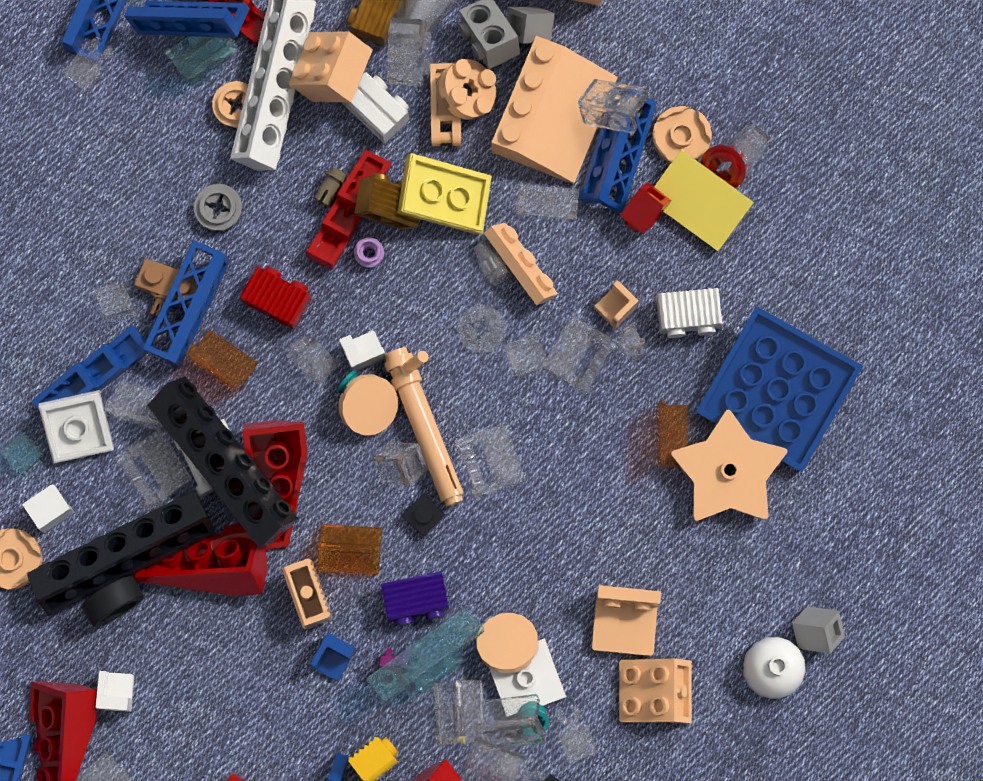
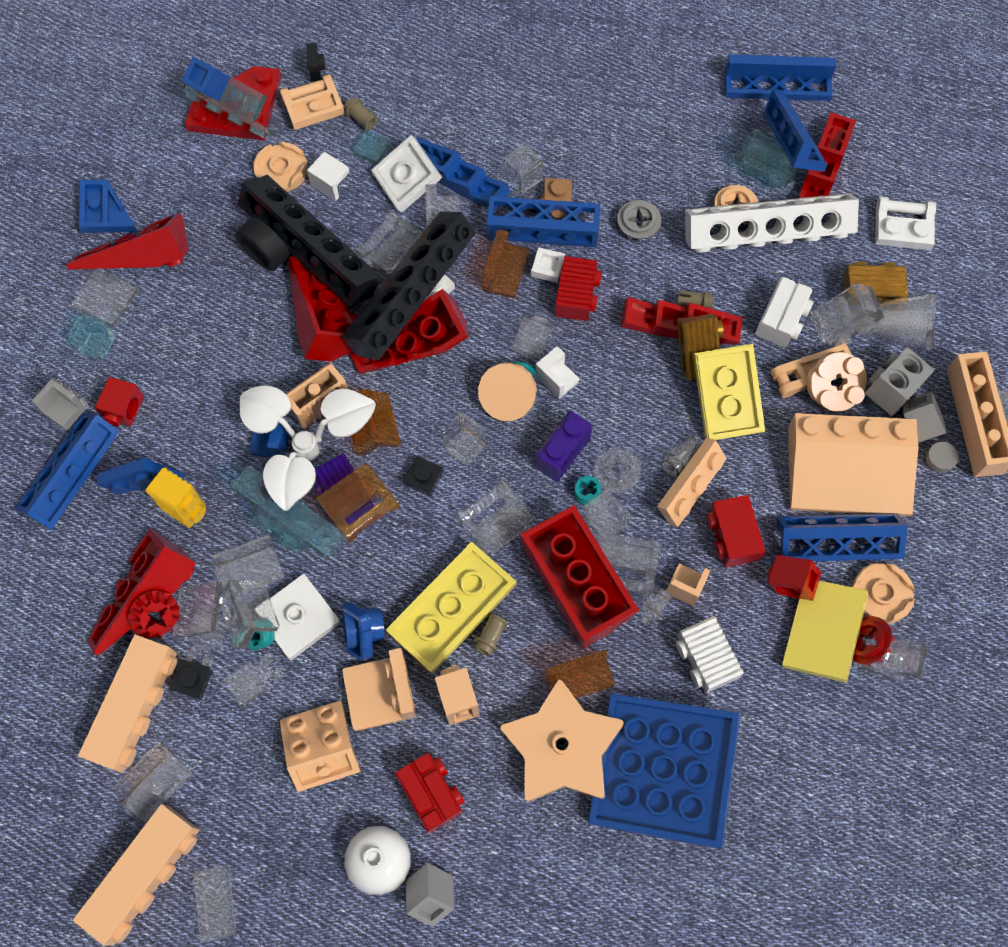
camera: 75 degrees right, 10 degrees down
(86, 68) = (716, 83): clear plate -> none
(115, 691) = (187, 275): white panel -> none
(238, 317) = (547, 265): none -> white plate
(312, 646) = (293, 477): none -> white plant
(330, 66) = (803, 257): light nougat brick -> none
(369, 243) = (649, 344): lavender plate -> none
(406, 382) = (540, 420): light nougat cylinder -> none
(432, 587) = (352, 494): none -> clear orange plate
(445, 371) = (563, 446): none -> dark purple brick
(484, 362) = (584, 482): none -> teal bush
(508, 643) = (323, 586): light nougat tile -> none
(547, 201) = (761, 485): clear hinge -> none
(561, 619) = (362, 628): none -> blue piece
(566, 529) = (451, 607): none -> light yellow plate
(572, 25) = (942, 457): none -> light grey tile
(580, 401) = (578, 576): none -> red slope
(582, 243) = (735, 531): none -> red brick
(605, 502) = (490, 635): none -> dark tan pin
(611, 105) = (881, 507): clear bracket -> none
(656, 549) = (457, 695): none -> light nougat brick
(731, 602) = (429, 792): none -> red brick

